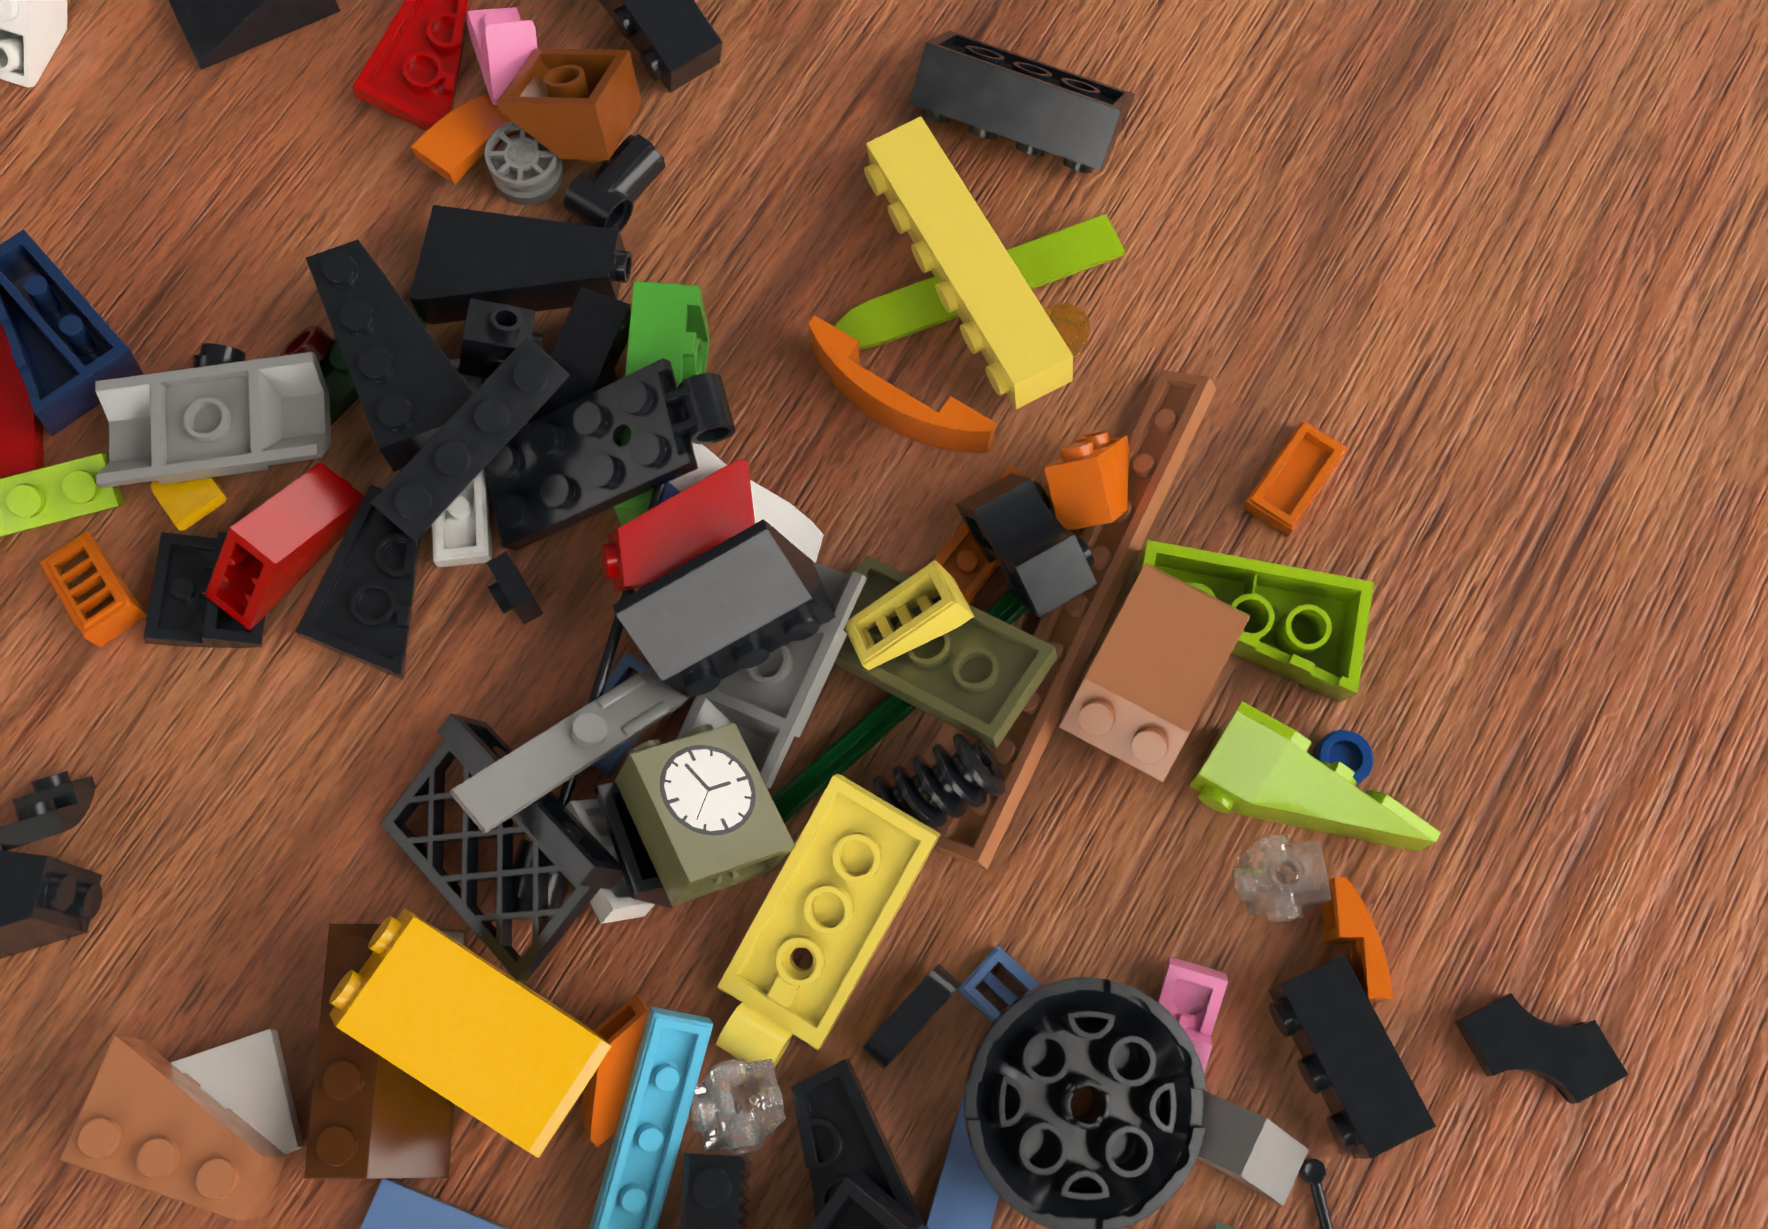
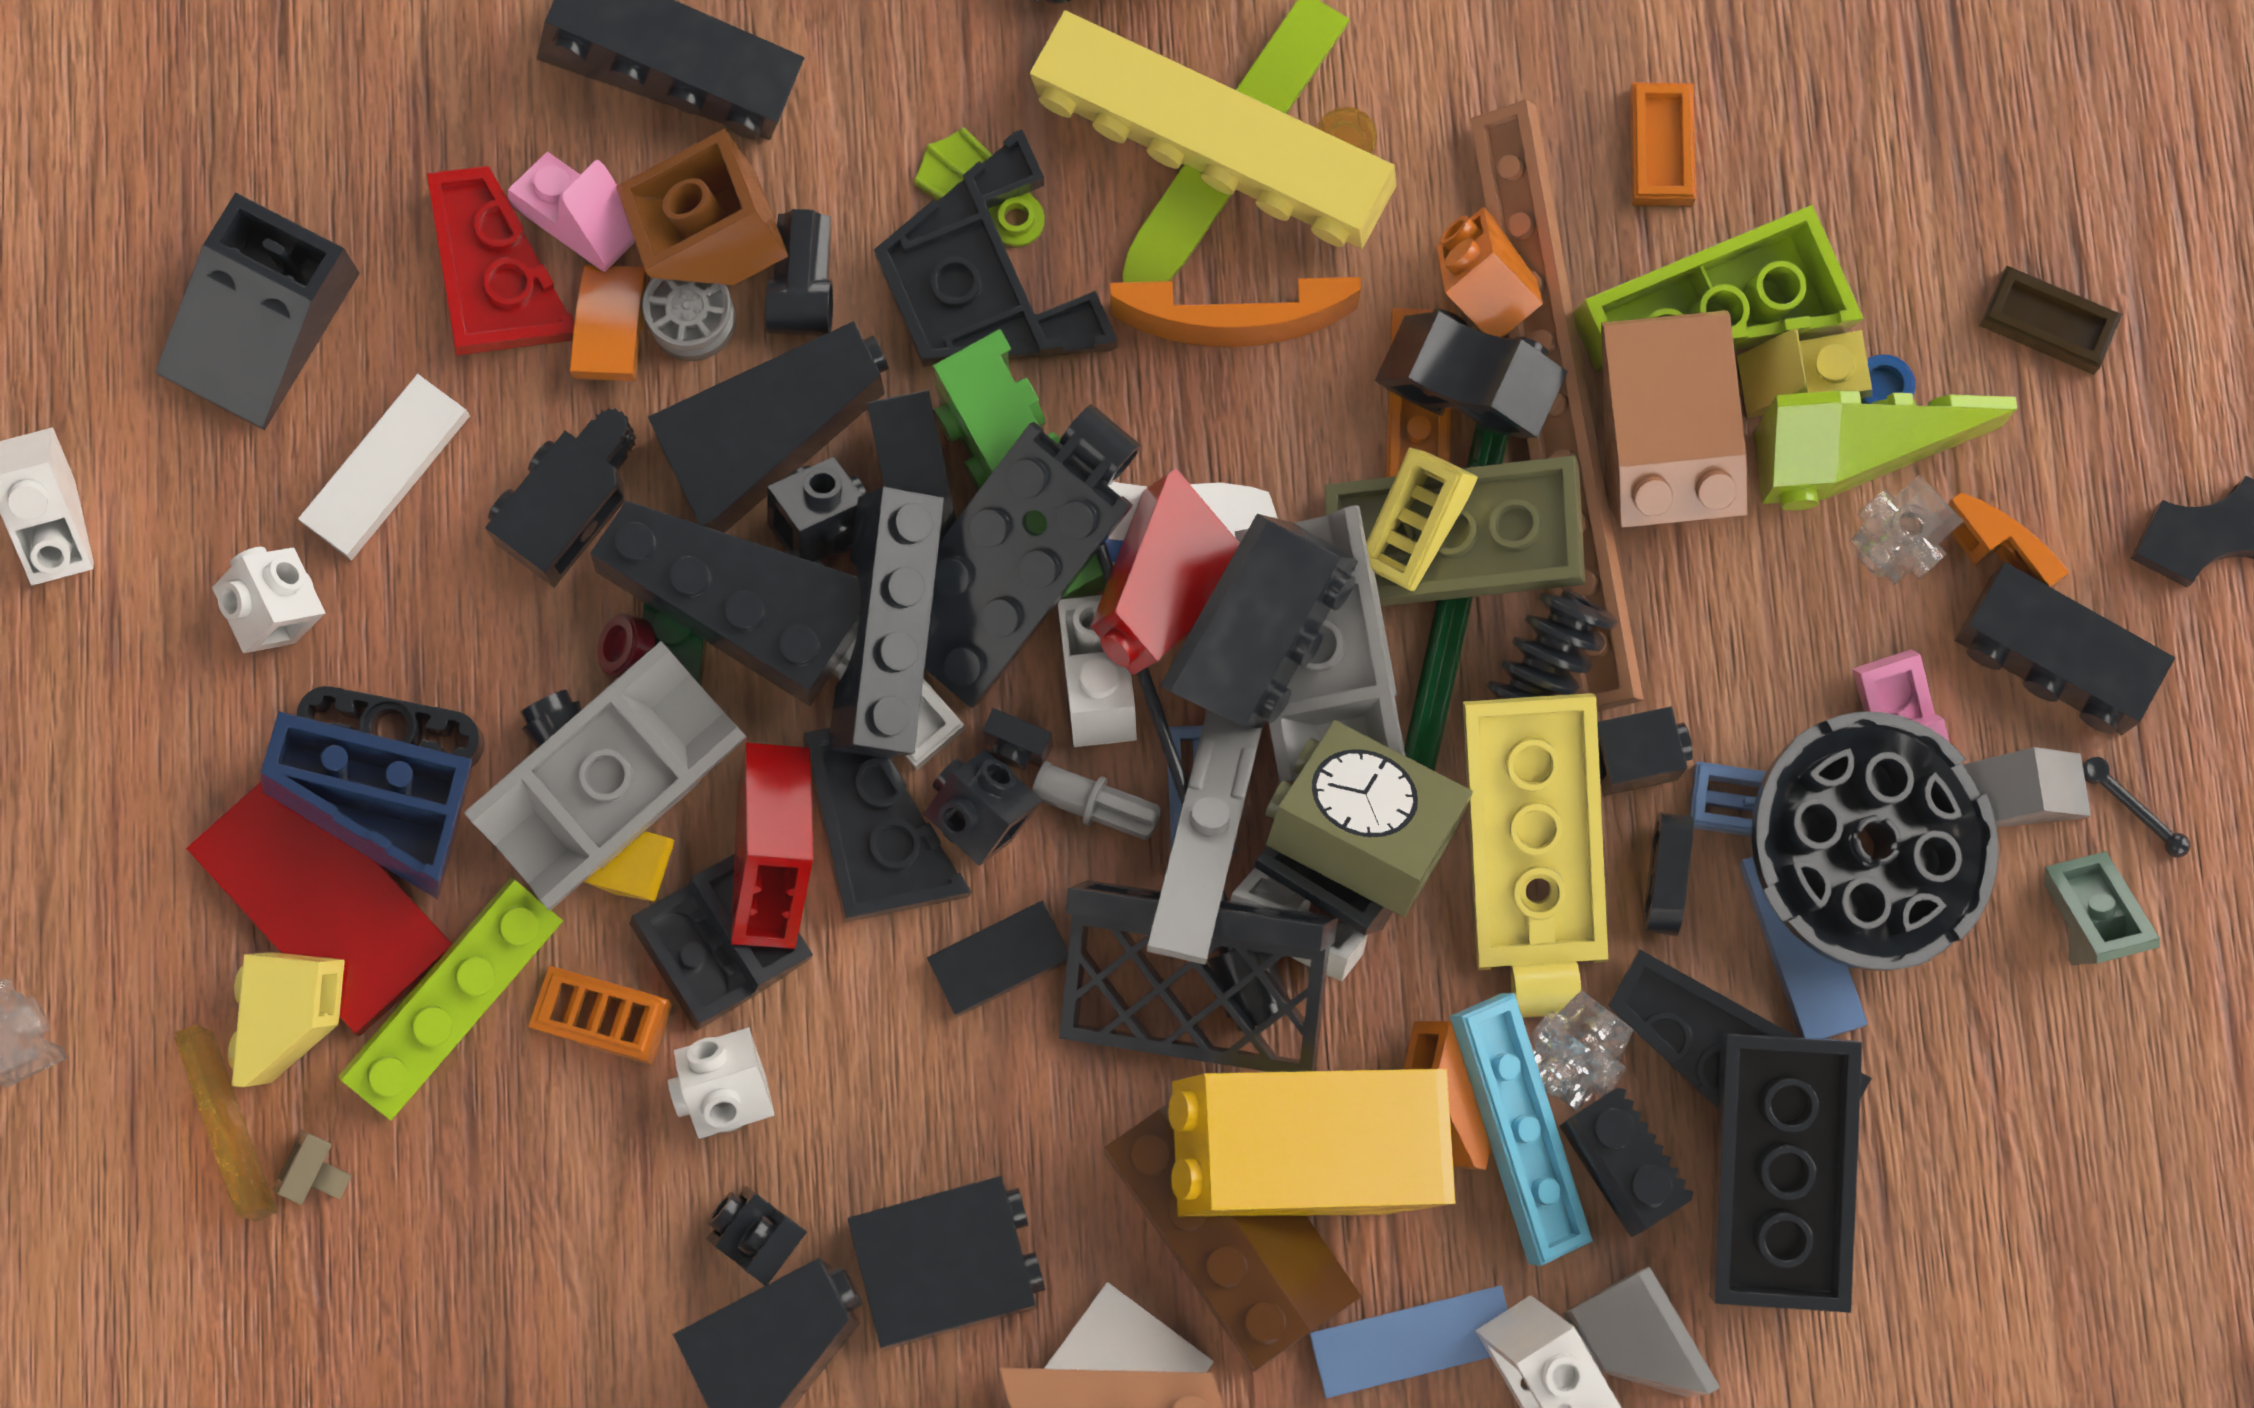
camera: 35 degrees left, 5 degrees up
(104, 167) = (267, 599): none -> white brick
(120, 689) = (721, 1083): none -> white brick
(138, 314) = (439, 720): none -> black beam
(166, 930) = (945, 1262): none -> black brick
(254, 139) = (384, 467): none -> white tile
(348, 214) = (565, 497): none -> black hinge
(381, 736) = (999, 958): none -> black tile
(448, 617) = (980, 805): none -> black brick
(535, 670) = (1096, 801): none -> light grey axle
(581, 594) = (1097, 687): none -> white slope
(724, 247) = (960, 283): none -> black wing
(784, 208) = (943, 170): none -> lime piece
(956, 905) = (1642, 750): none -> black brick
(1278, 694) = (1804, 366): none -> light yellow slope
(1512, 796) = (2050, 320): none -> dark brown tile

